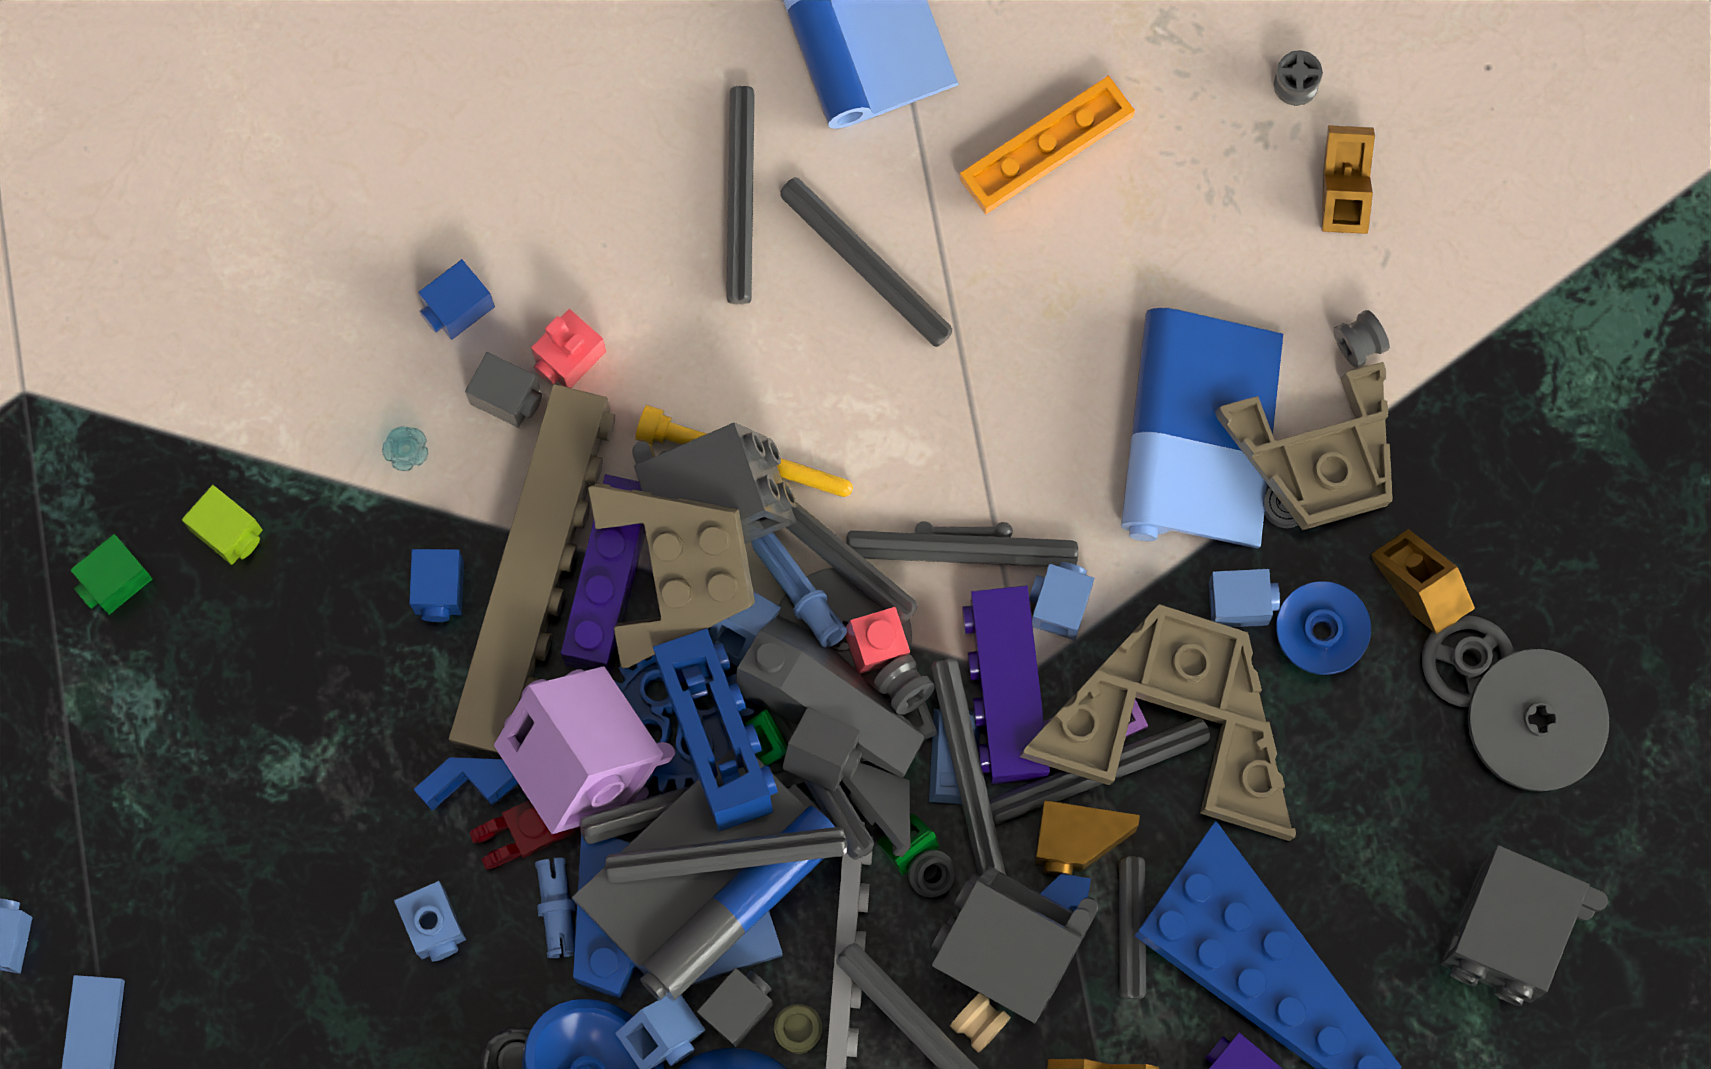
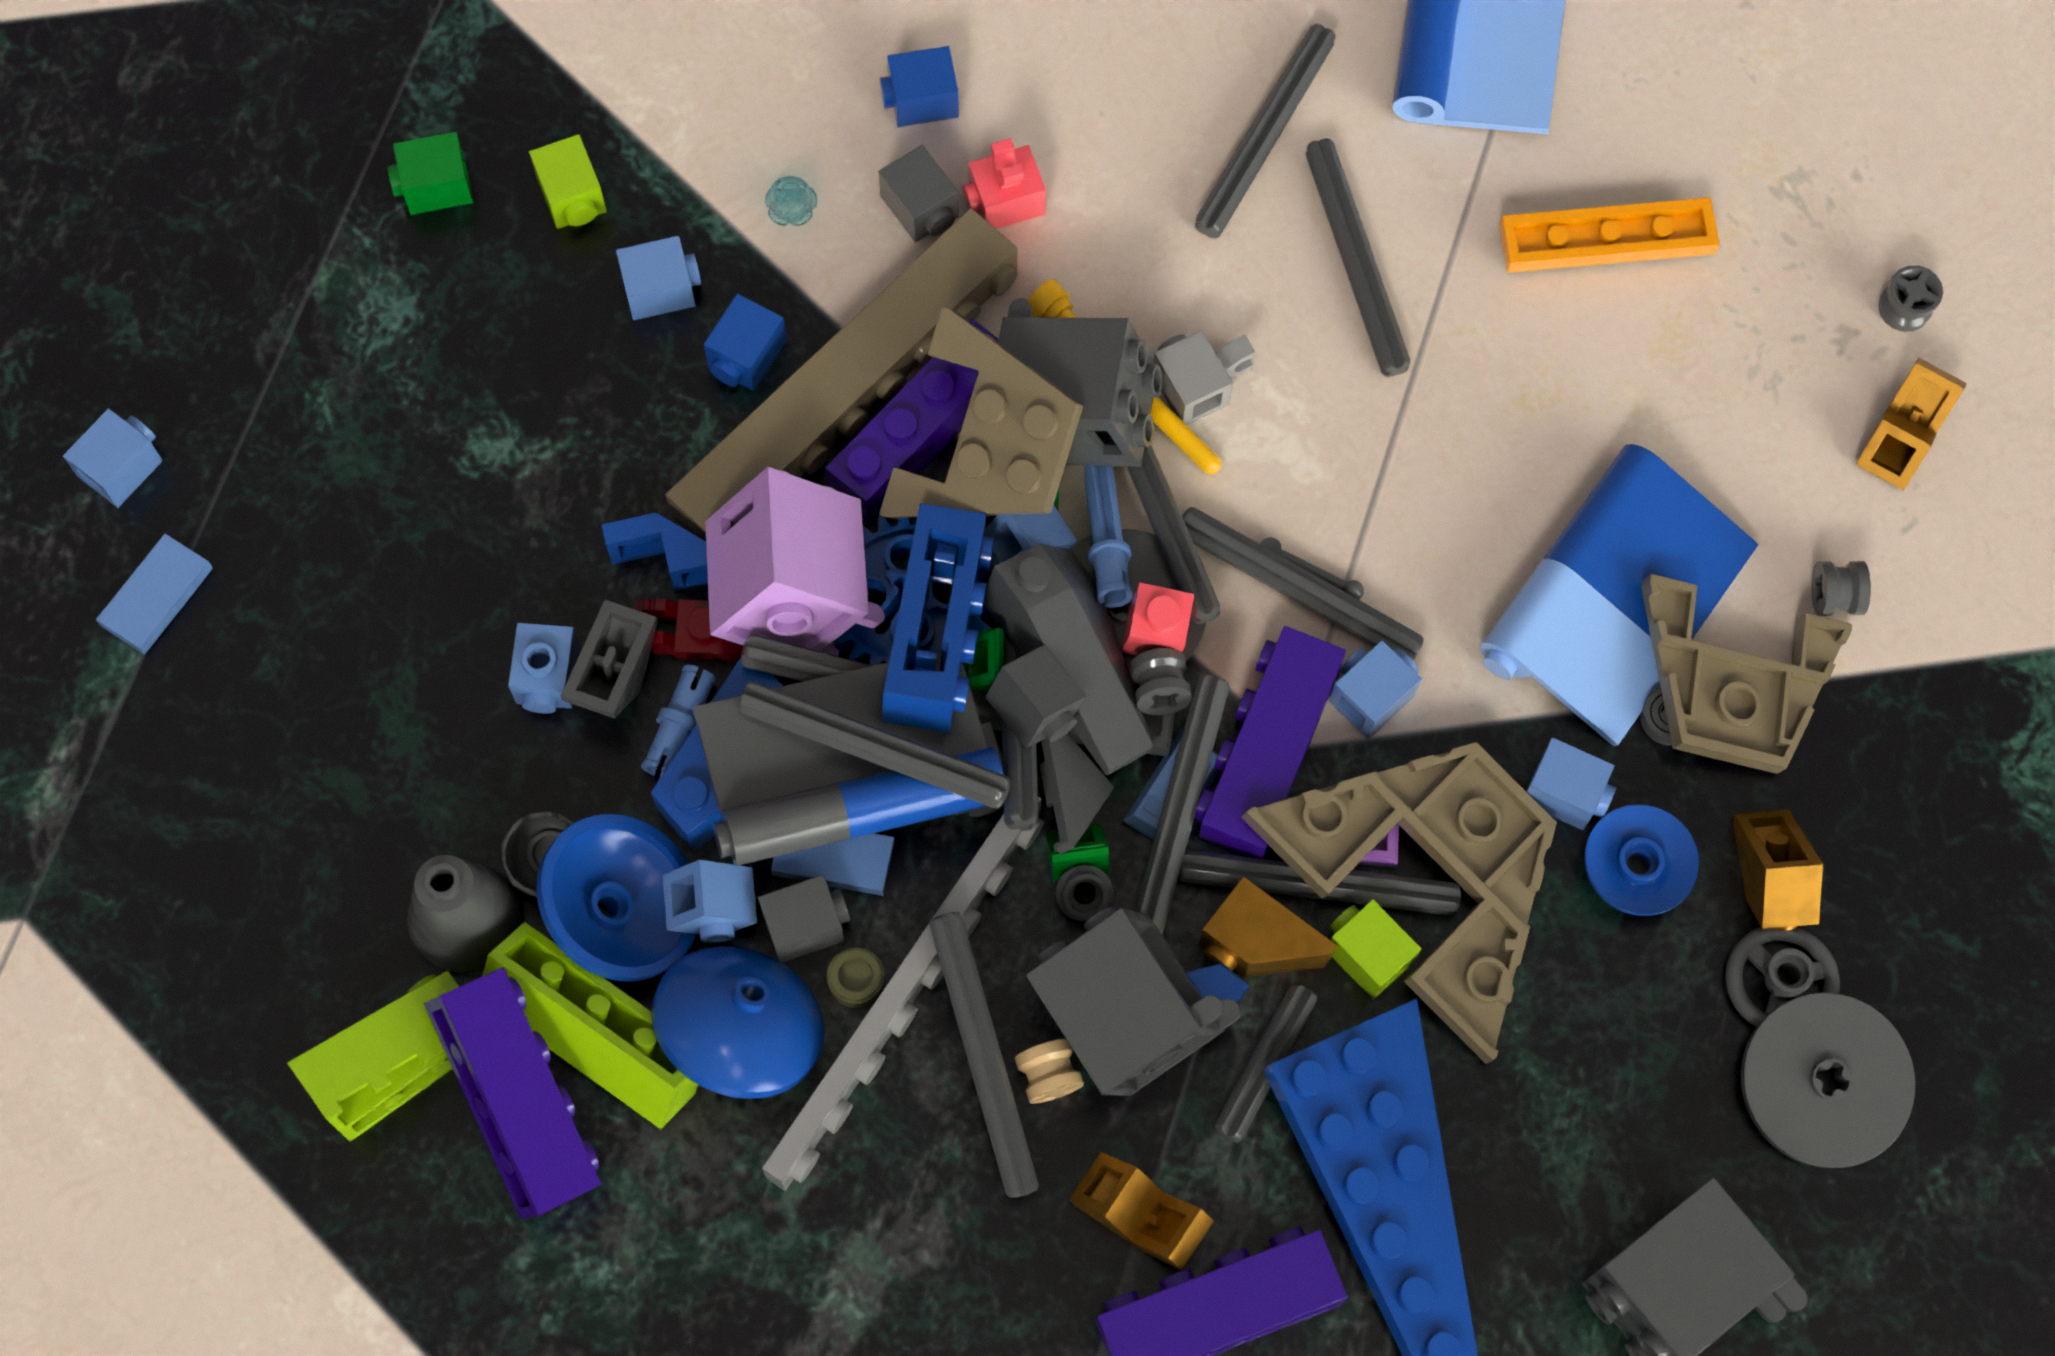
camera: 25 degrees right, 5 degrees down
(338, 565) = (658, 277): none -> medium blue brick
(482, 890) = (612, 660): none -> dark grey slope
(797, 424) = (1197, 377): none -> light grey brick
(1164, 800) = (1372, 947): none -> lime brick

